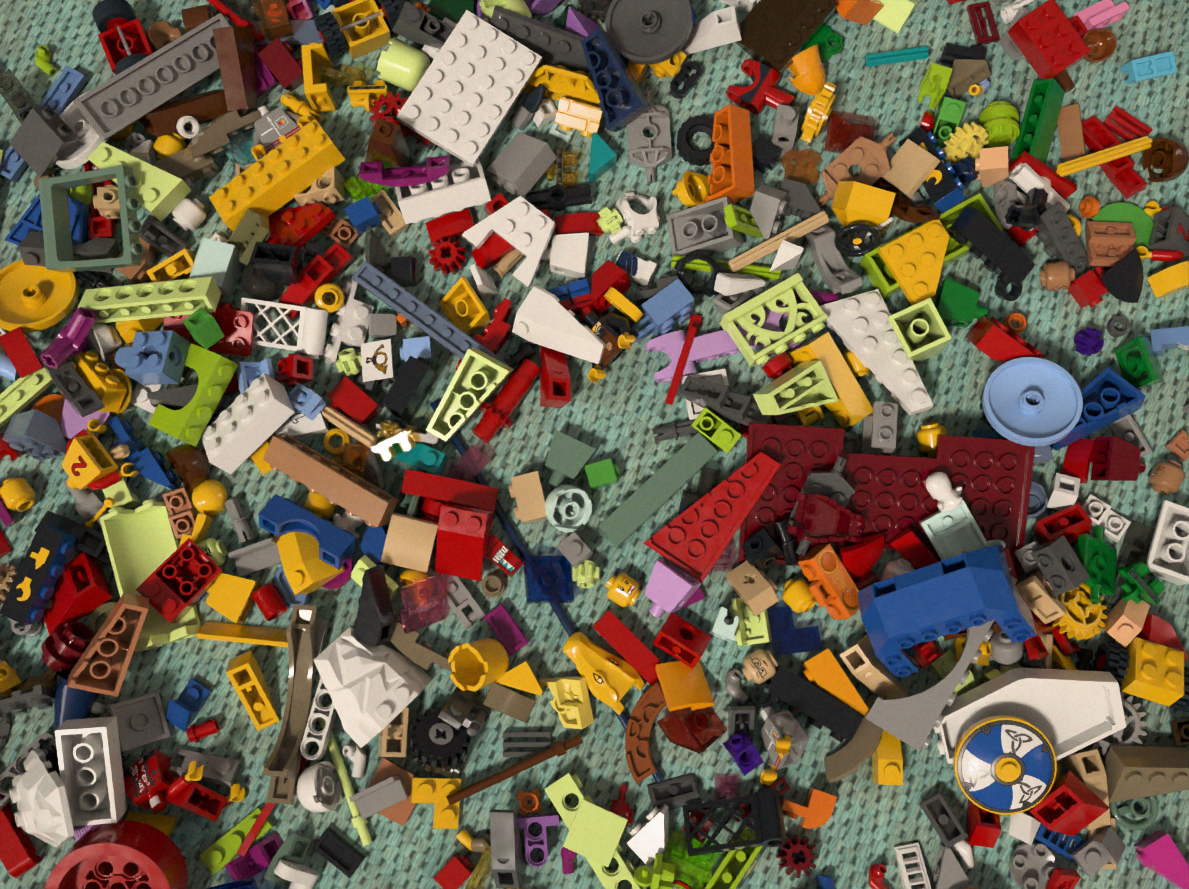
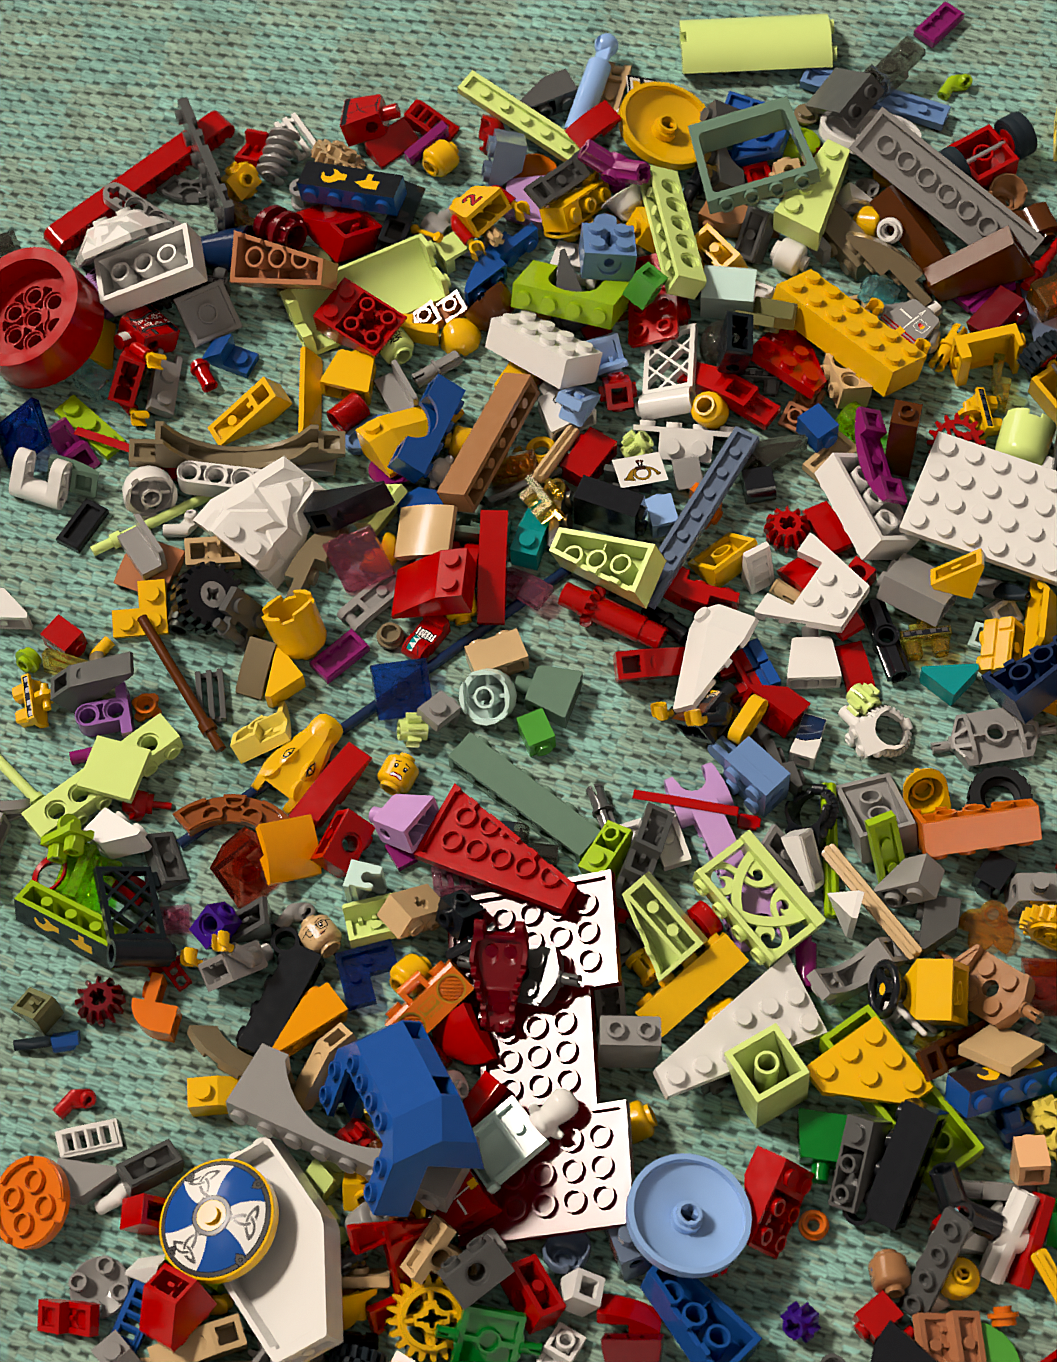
camera: 85 degrees right, 15 degrees down
(520, 127) = (959, 575): none -> yellow slope
(982, 280) = (858, 1155): none -> dark grey slope

